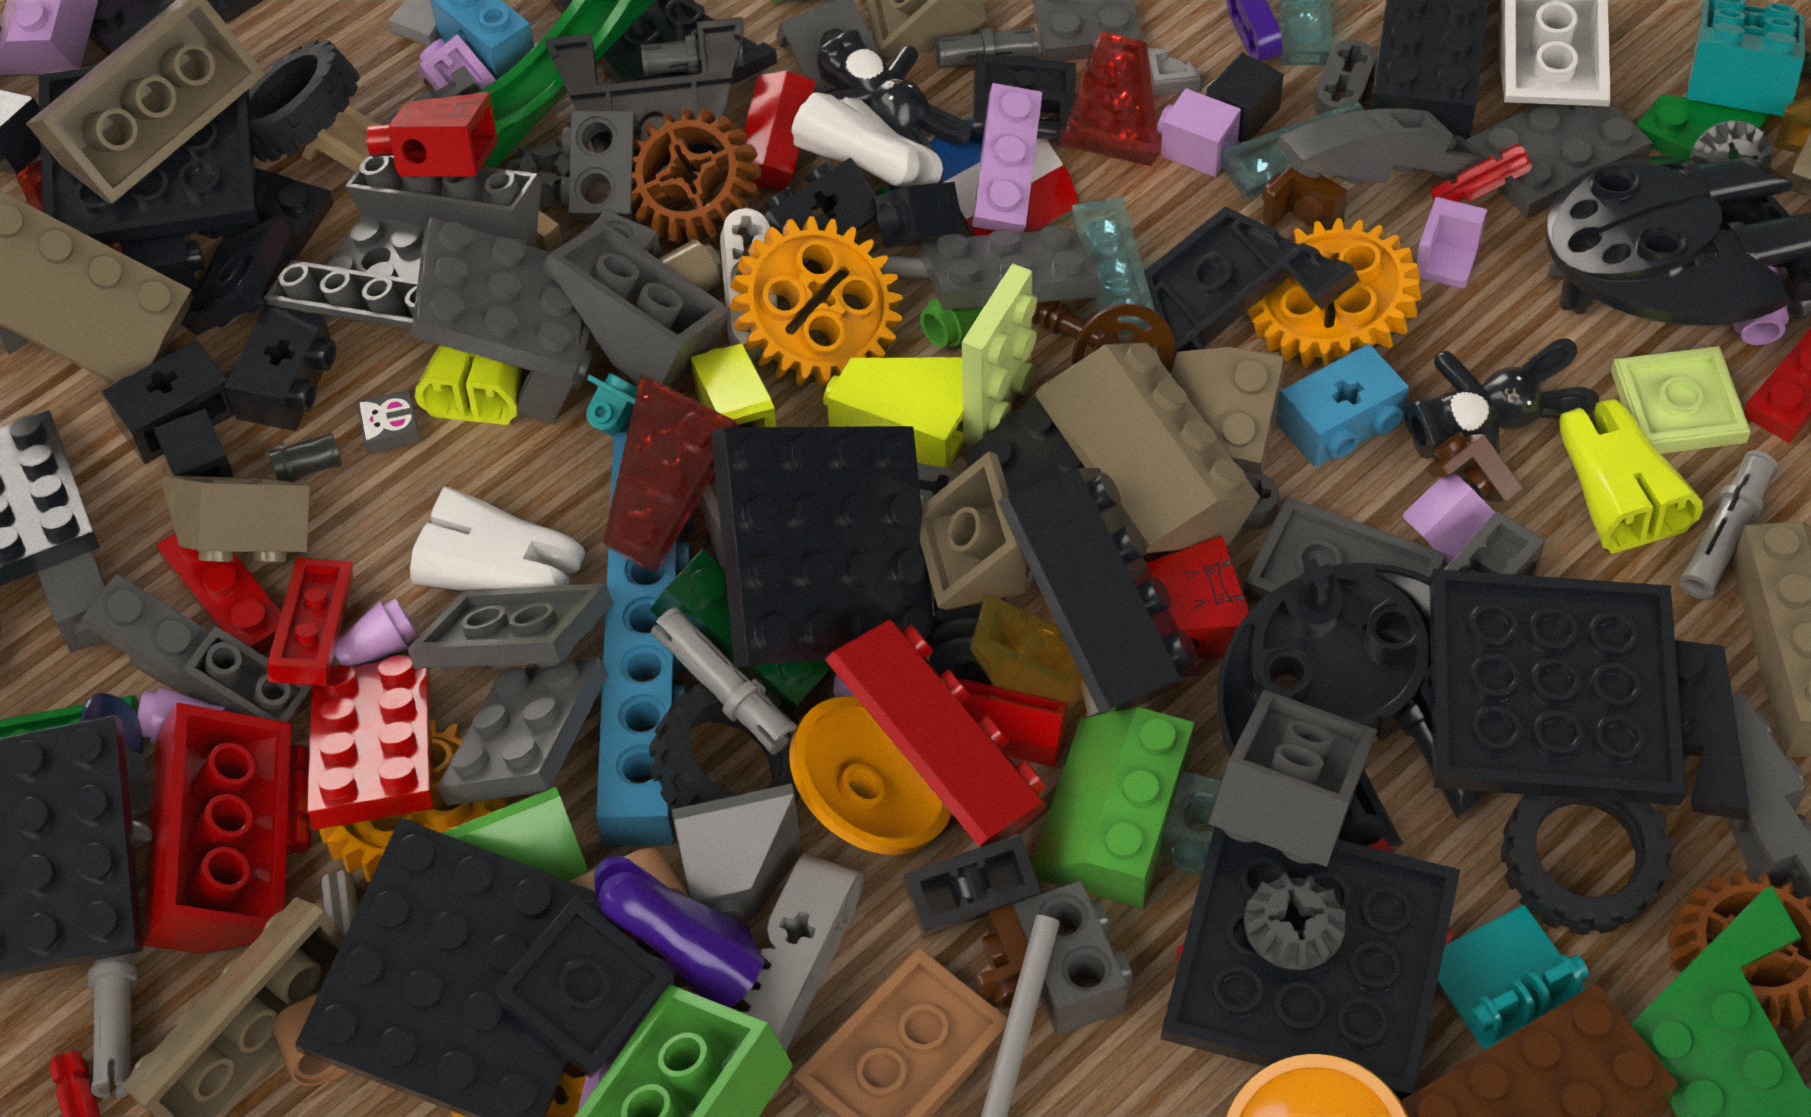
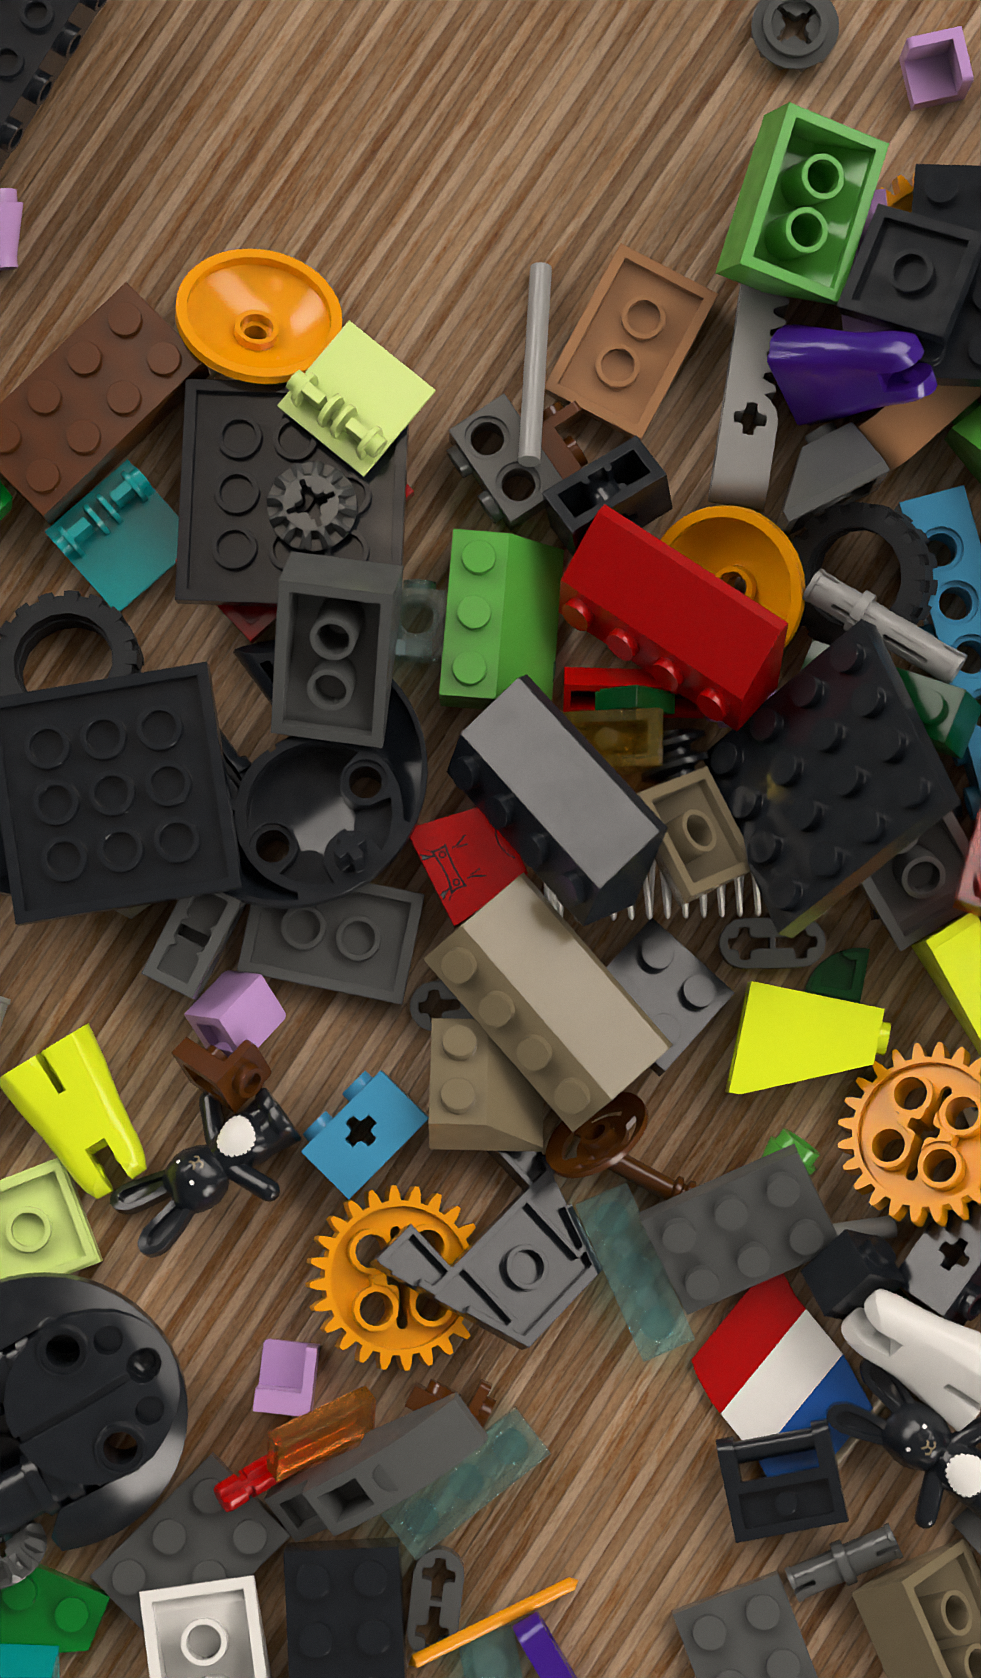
camera: 165 degrees right, 30 degrees up
(995, 672) = (634, 698): none -> dark green tile
(998, 355) = (723, 1050): yellowish green plate -> none
(1007, 158) = (778, 1383): lavender plate -> none
(1115, 103) = (681, 1501): clear red wing -> none
(1171, 74) = (633, 1576): light grey tile -> none
(1198, 131) = (582, 1480): lavender brick -> none
(1224, 1018) = (355, 398): none -> yellowish green hinge
(1252, 88) = (540, 1543): black brick -> none
(1321, 47) = (493, 1622): none -> light orange axle
(1426, 188) = (320, 1433): none -> clear orange tile

